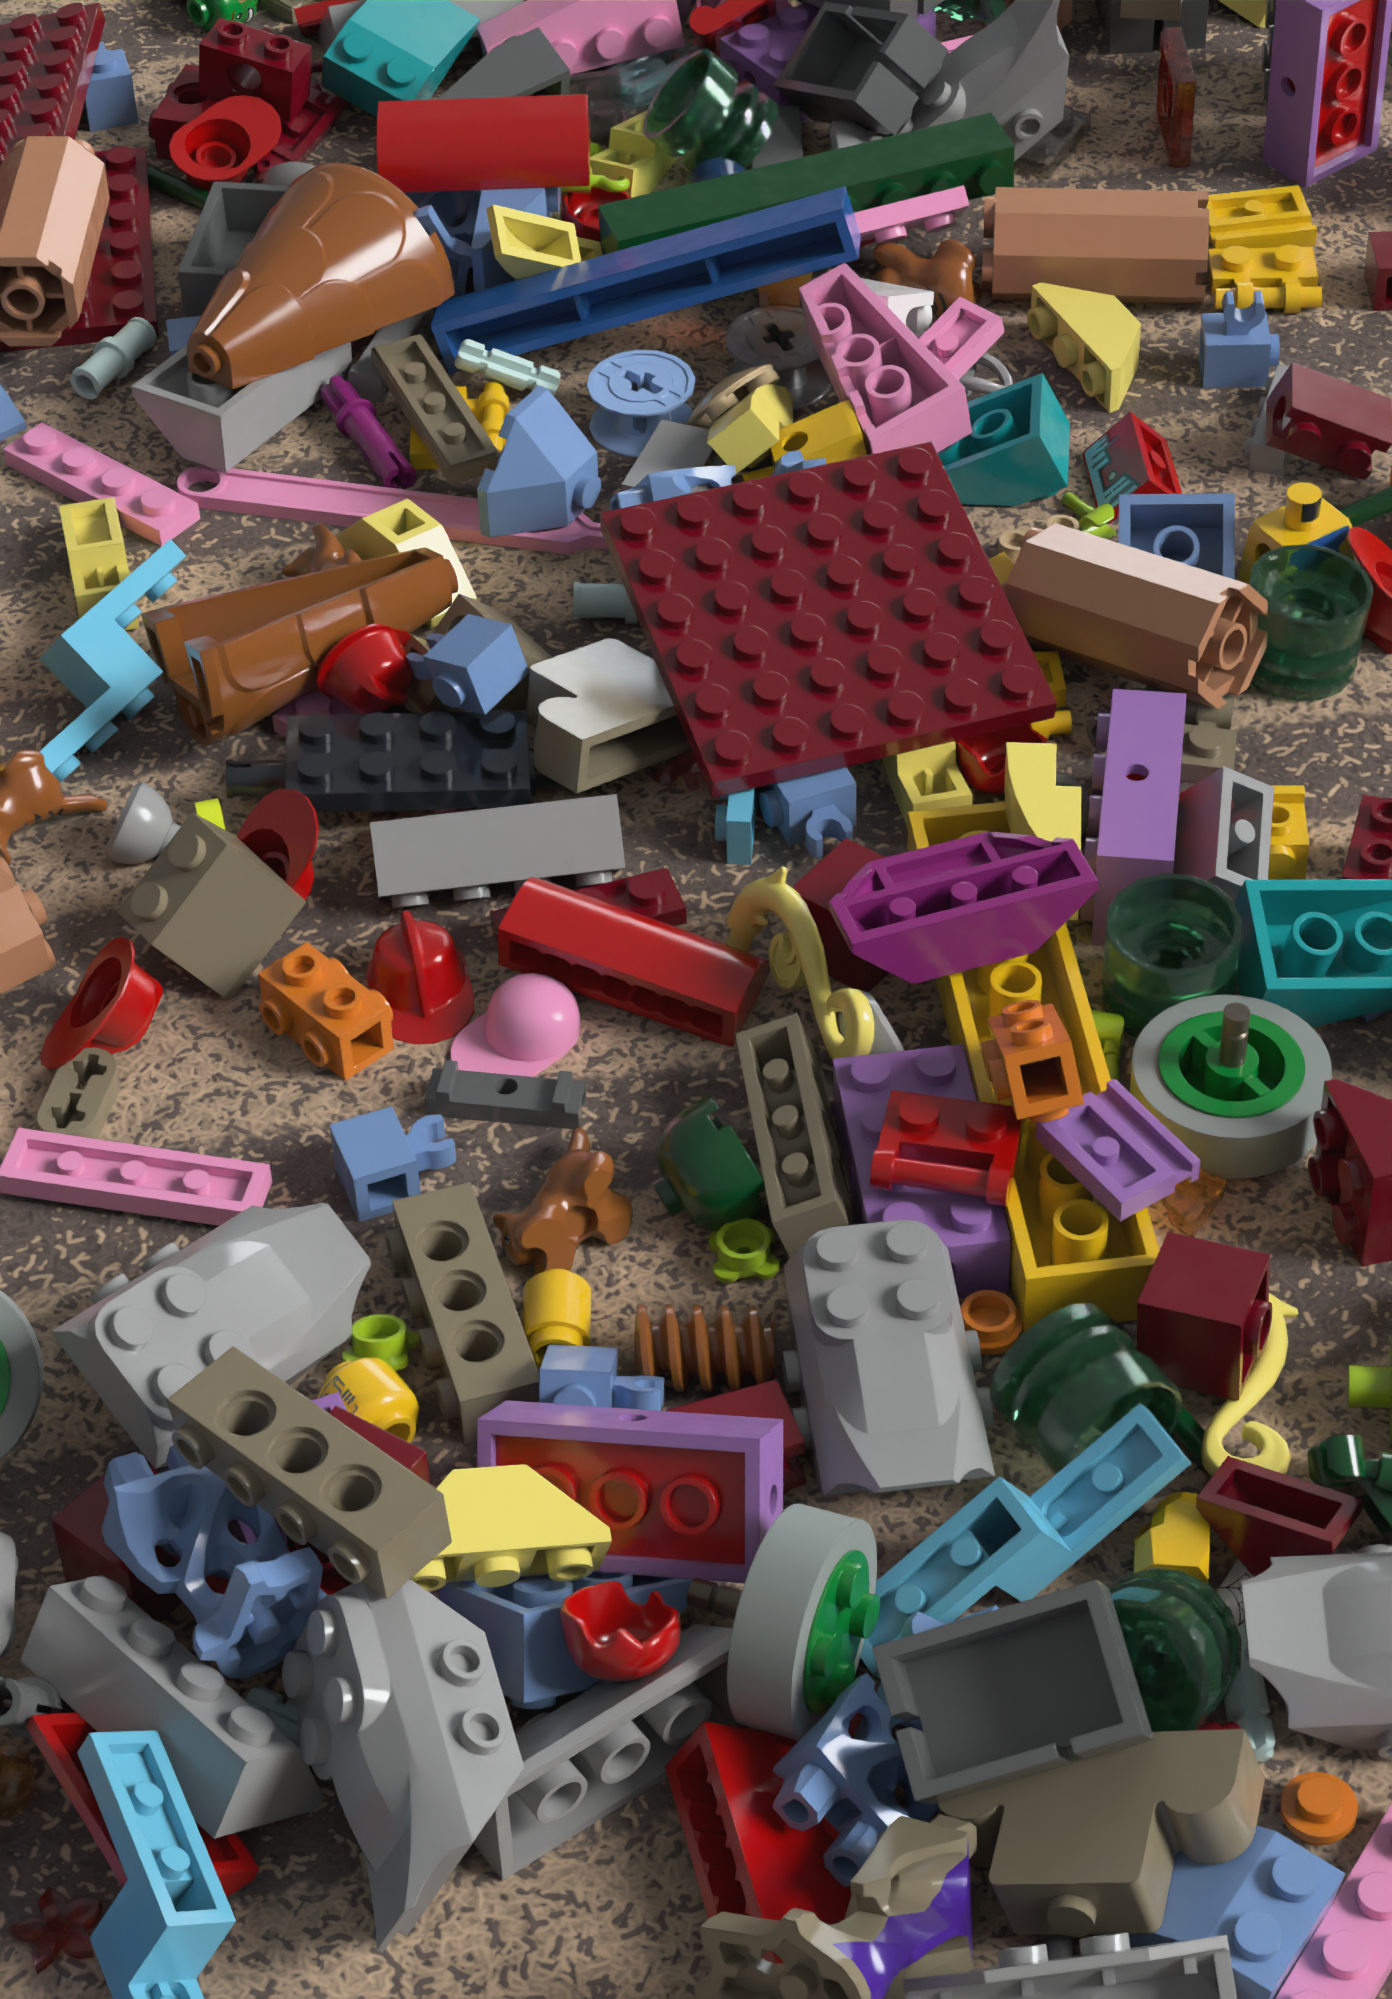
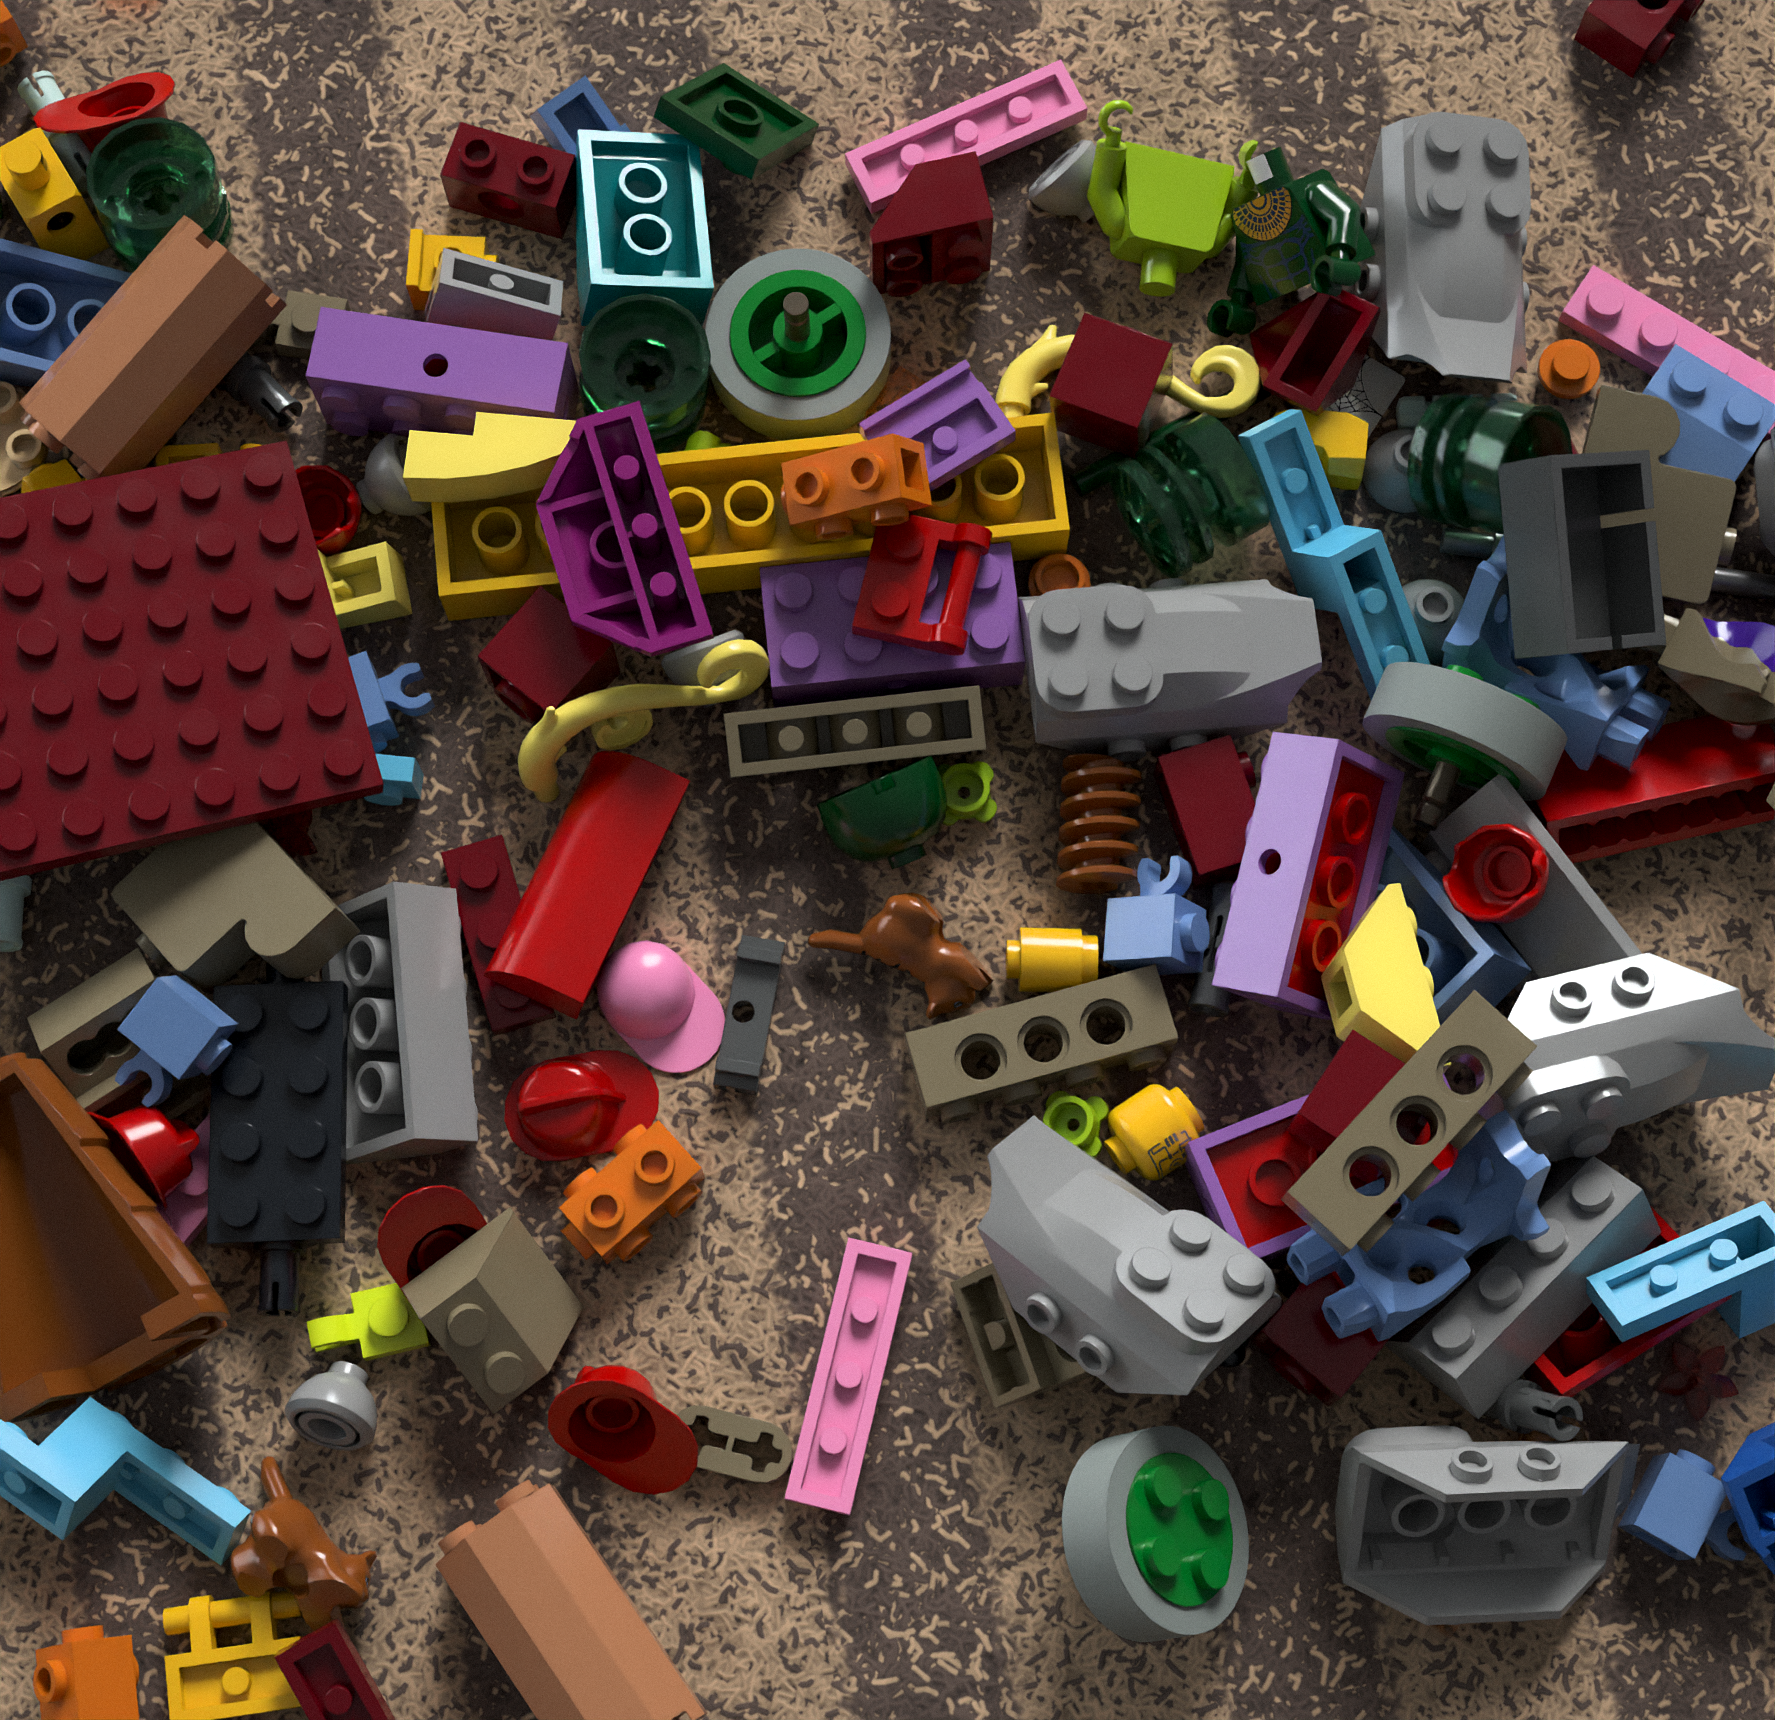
camera: 90 degrees left, 30 degrees up
(382, 1162) = (844, 1130): medium blue brick -> none

